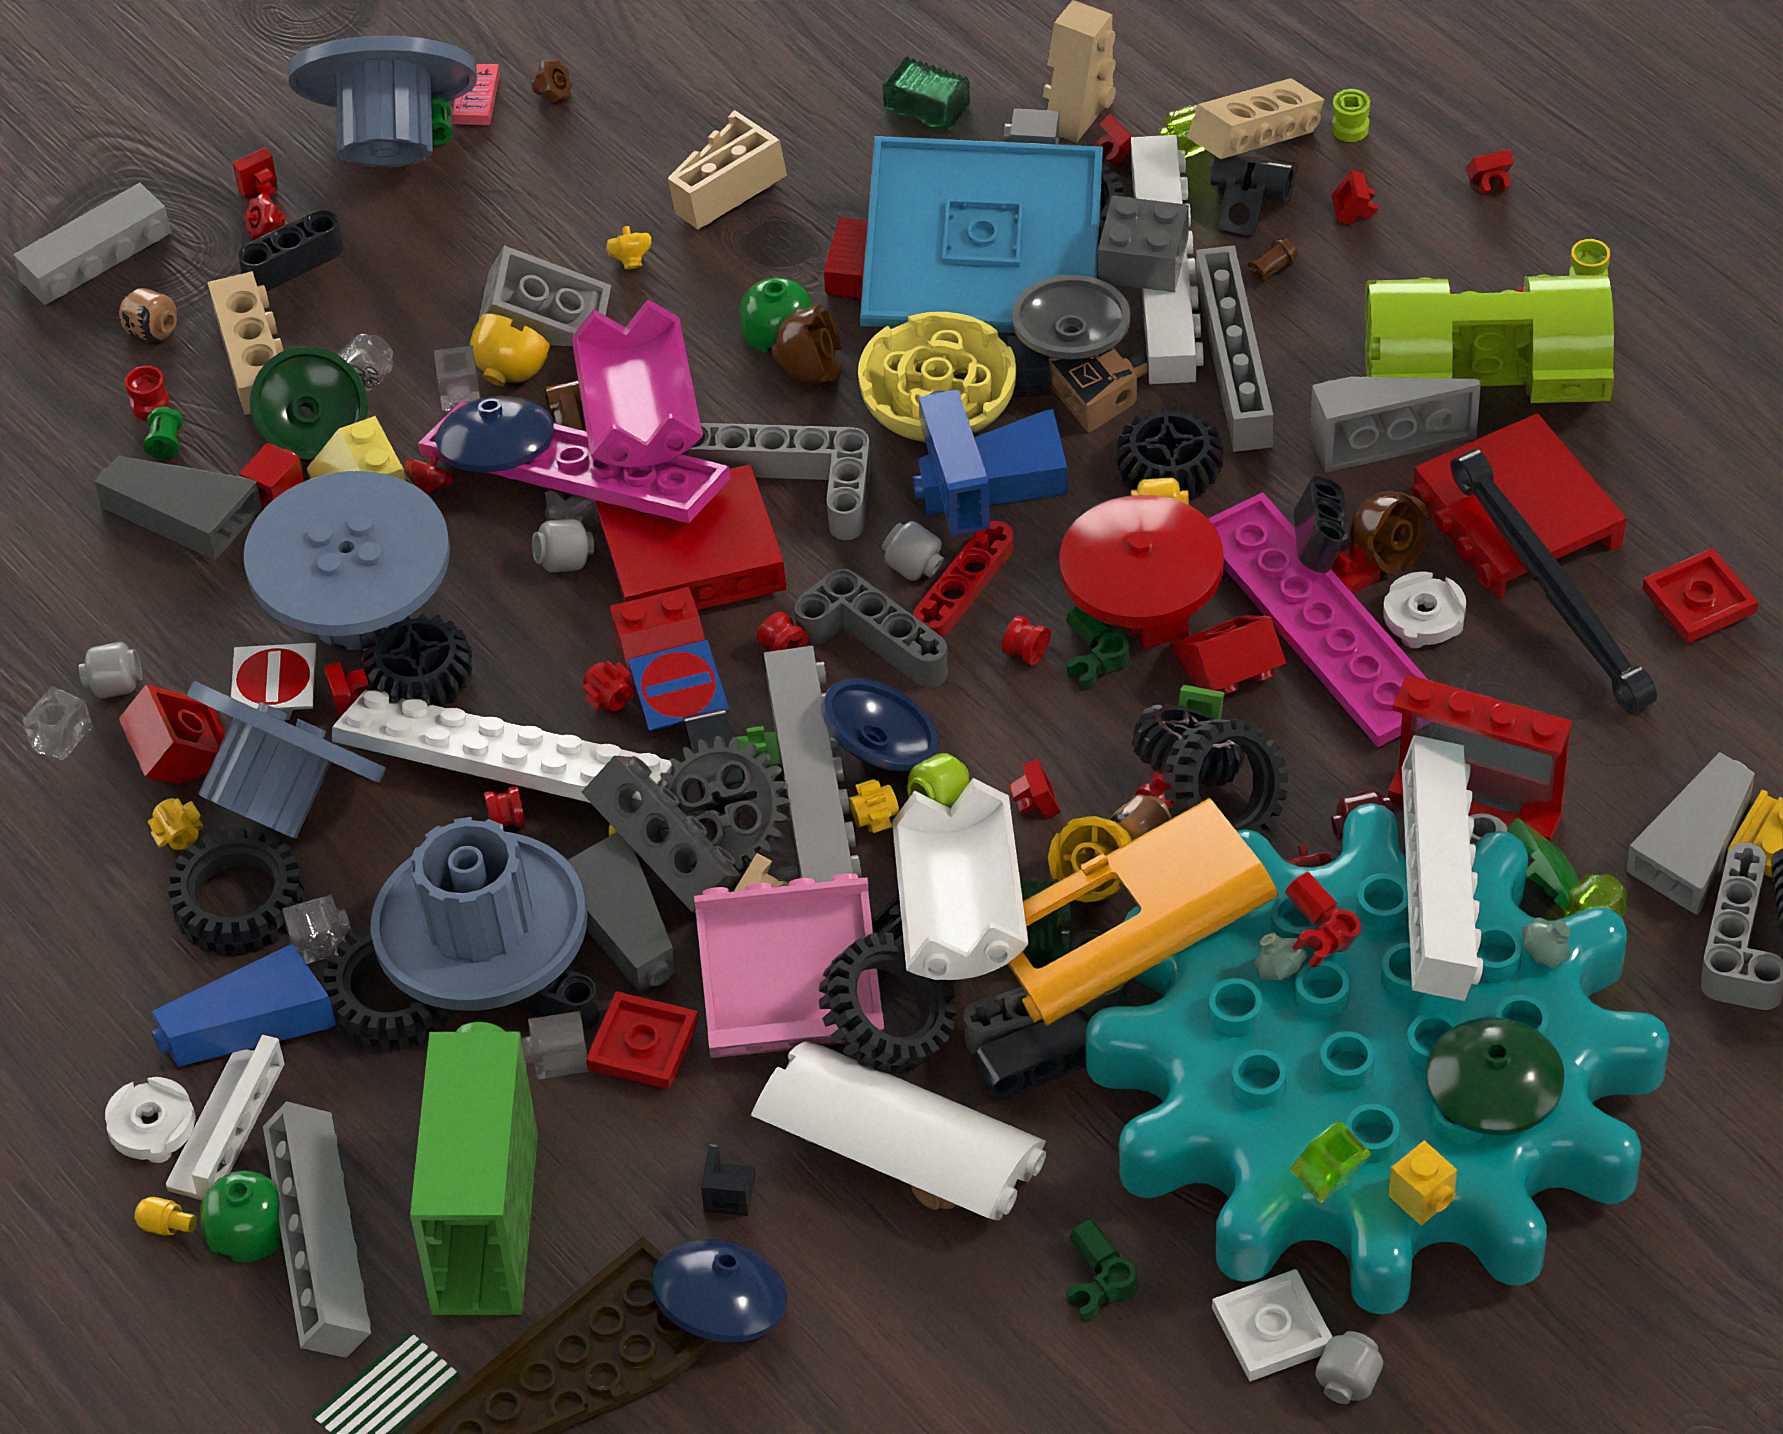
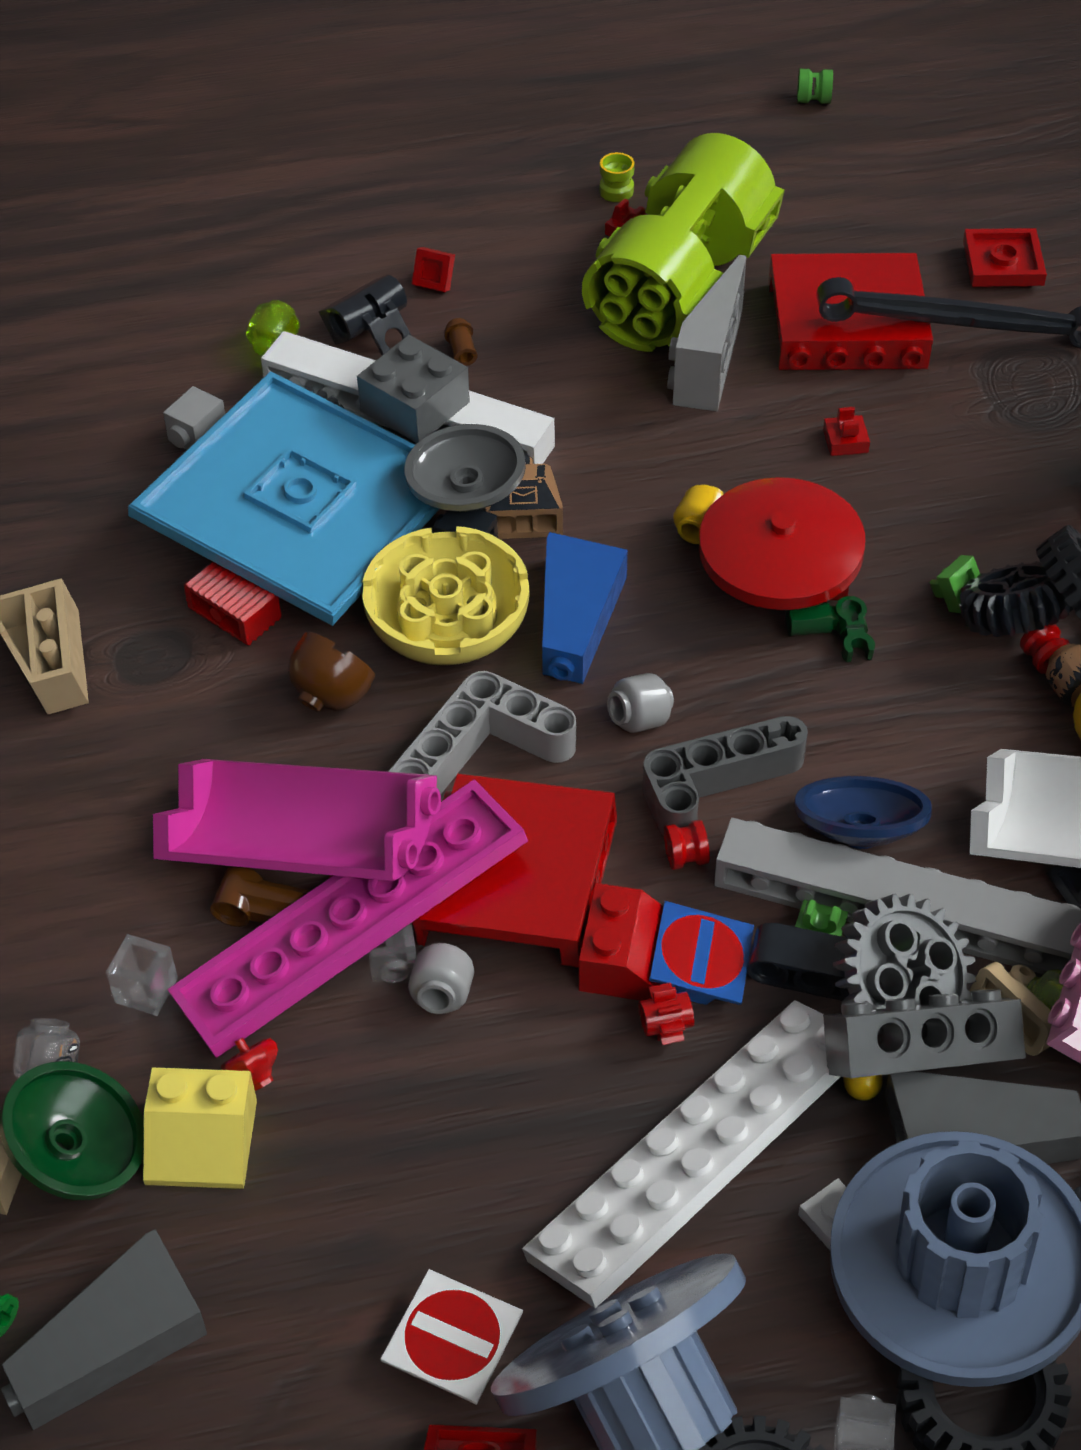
camera: 65 degrees left, 0 degrees up
(273, 471) = (140, 1207): red brick -> none
(344, 689) = (515, 1270): red tile -> none
(347, 555) = (377, 1164): sand blue piece -> none
(441, 655) = (498, 1159): black gear -> none
(494, 434) = (259, 970): dark blue dish -> none
(505, 807) = (782, 1177): red wheel -> none
(507, 352) = (137, 910): yellow cylinder -> none
(542, 295) = (81, 867): light grey slope -> none
(629, 248) = (71, 763): yellow piece -> none
(767, 306) = (254, 687): green cylinder -> none
(873, 806) = (953, 853): yellow gear -> none
(926, 93) = (68, 472): clear green brick -> none
(939, 779) = (951, 796): lime head -> none
(955, 462) = (589, 607): slope -> none
(969, 583) = (688, 687): red beam -> none
(1026, 640) = (804, 666): red wheel -> none
(1035, 791) = (995, 728): red tile -> none
(1082, 68) = (157, 344): tan wedge -> none
(1118, 139) = (242, 371): red tile -> none
(1170, 447) = (640, 486): black gear -> none
(1231, 653) = (905, 538): red slope -> none
(1234, 349) = (571, 396): light grey brick -> none
(1255, 118) = (317, 275): tan brick -> none
(1316, 616) = (911, 467): dark pink plate -> none
(1320, 524) = (805, 420): black beam -> none
(1350, 115) = (340, 237): lime wheel -> none
(1390, 530) = (829, 387): reddish brown cylinder -> none
(1420, 627) = (935, 421): white plate -> none
(1491, 166) = (469, 187): red tile -> none

